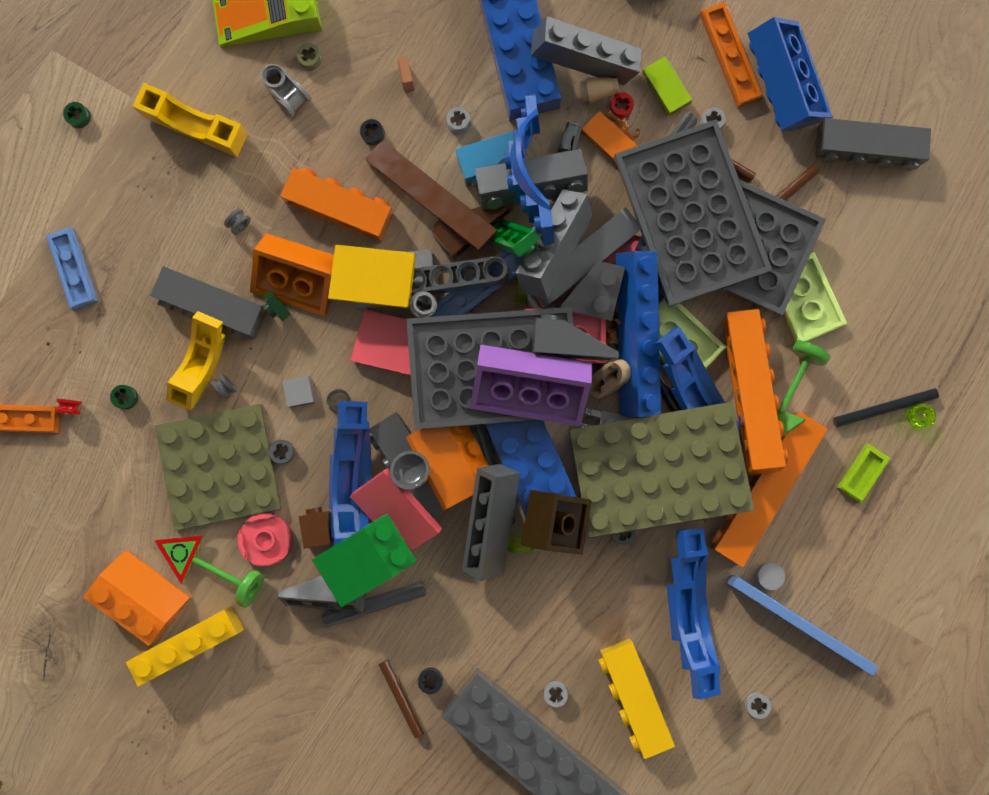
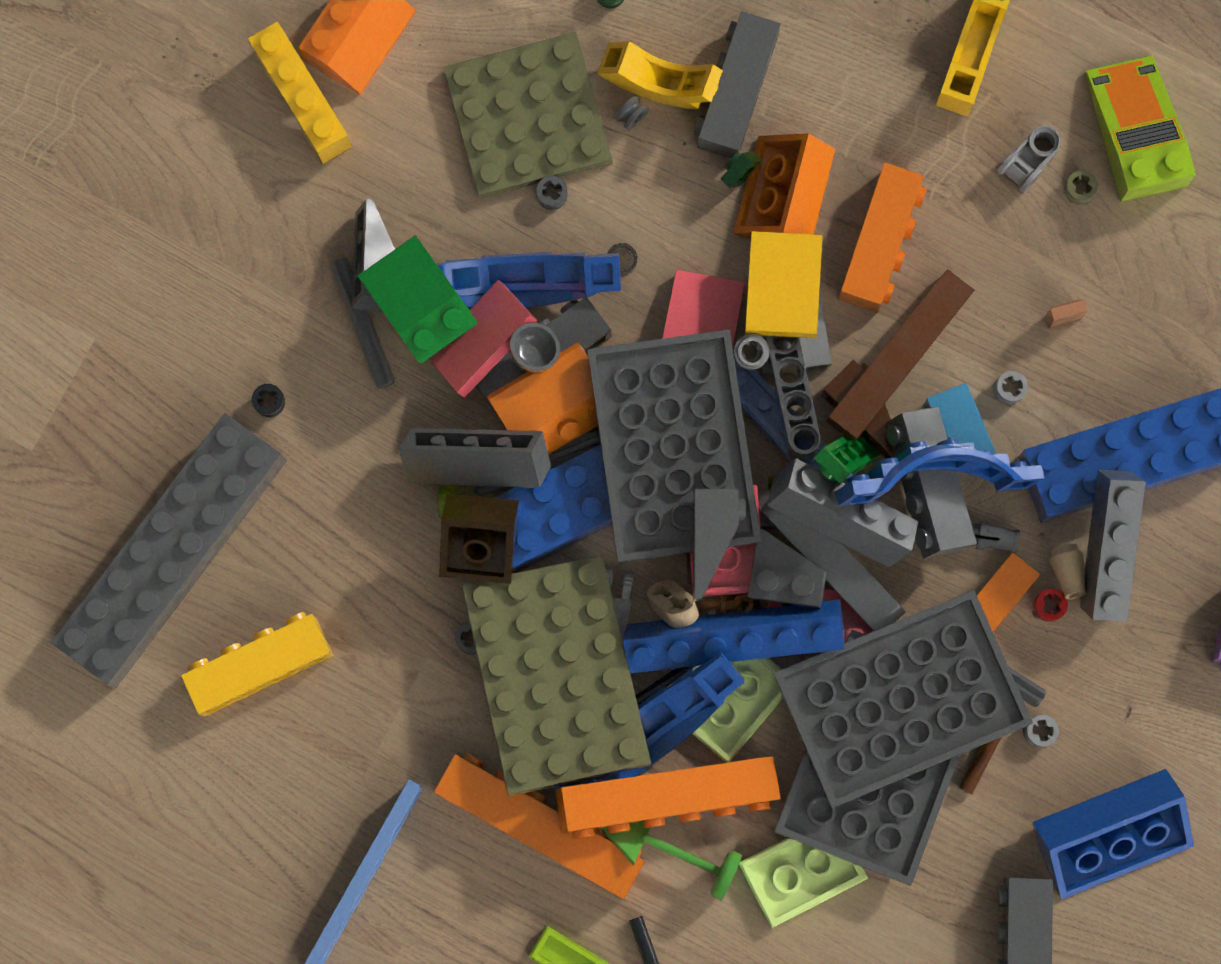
camera: 90 degrees right, 5 degrees down
(181, 554) = (413, 78): bright green piece -> none
(237, 221) = (848, 112): dark grey bush -> none
(264, 539) = (437, 180): coral tile -> none
(298, 391) = (631, 207): light grey tile -> none
(316, 528) = (455, 240): reddish brown brick -> none
(364, 133) = (983, 266): black bush -> none
(401, 698) = (244, 365): reddish brown bar -> none
(531, 385) = (652, 490): medium lavender slope -> none
(564, 693) = (256, 551): light grey bush -> none
(621, 123) = (1024, 607): clear orange hand -> none
(667, 86) = (1084, 665): lime tile -> none
(690, 613) = (371, 731): blue piece -> none
(731, 55) = (1137, 753): orange tile -> none
(762, 698) = (244, 822): light grey bush -> none
(770, 576) = (424, 837): light grey tile -> none
(798, 183) = (970, 861): reddish brown bar -> none

